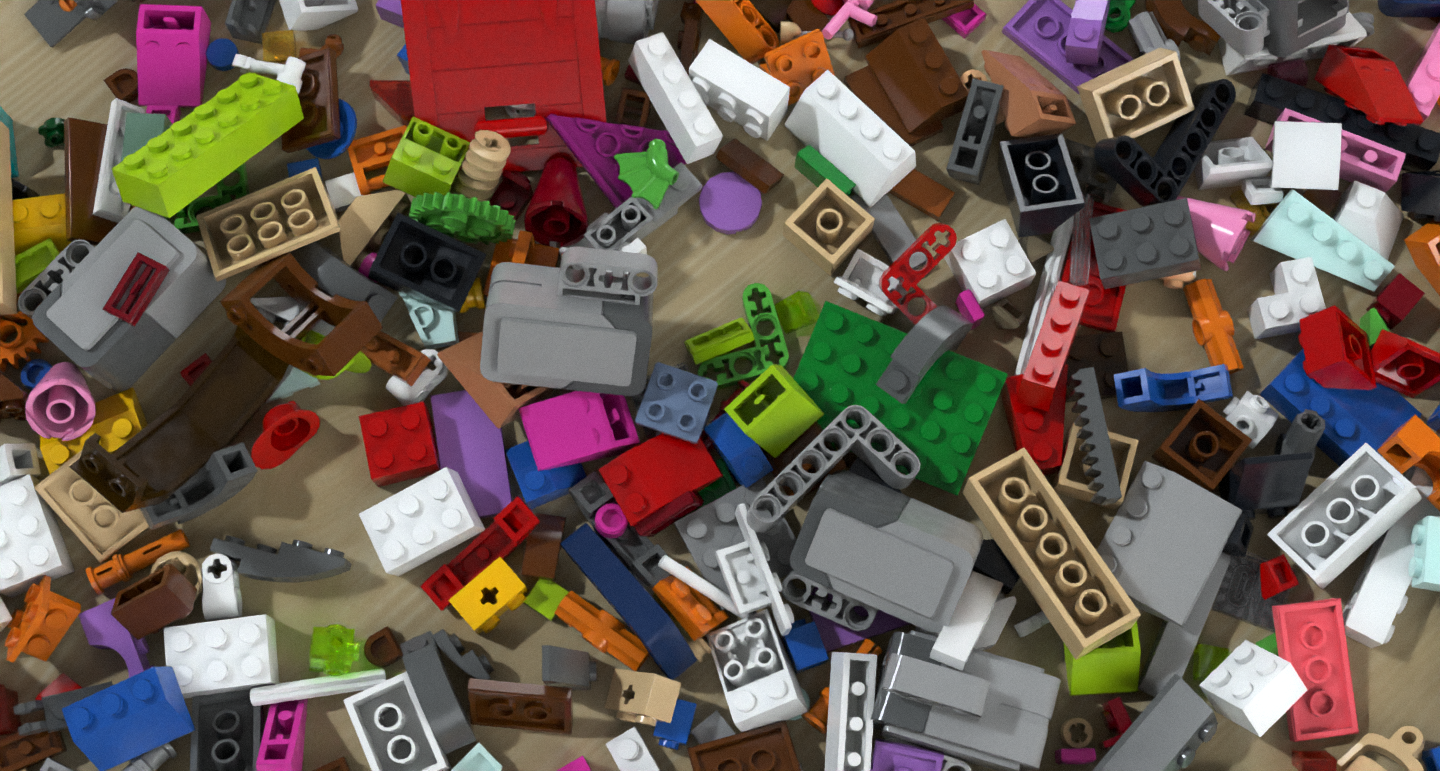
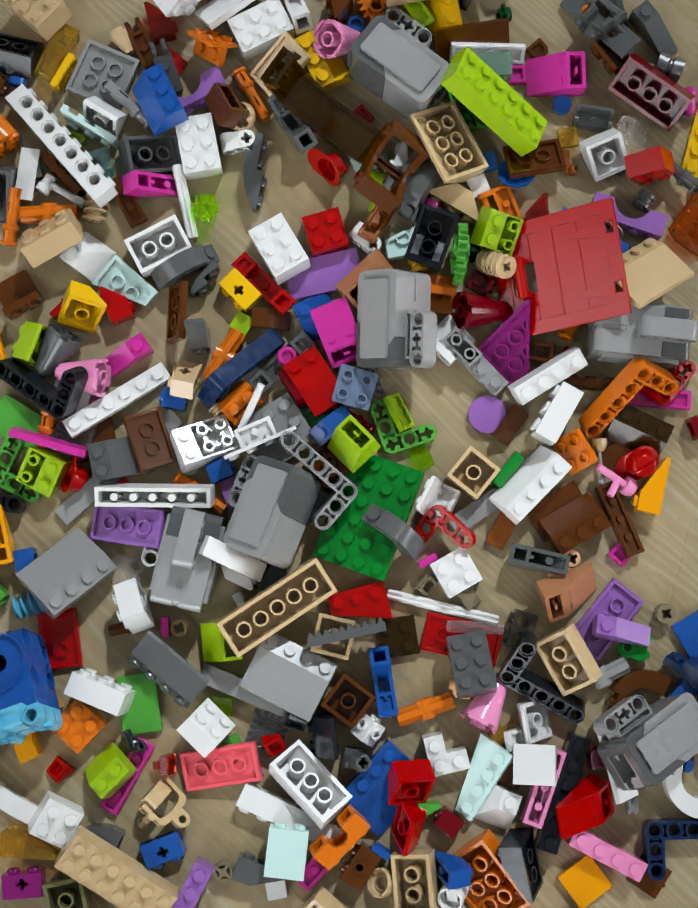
camera: 85 degrees right, 10 degrees up
(147, 294) = (394, 77): dark red tile -> none
(287, 73) = (548, 144): white brick -> none
(382, 648) = (209, 234): reddish brown tile -> none
(648, 172) = (498, 362): bright green arm -> none
(1039, 183) = (507, 599): black slope -> none
(1053, 346) = (402, 608): brick -> none
(1116, 719) = (187, 649): dark red bracket -> none

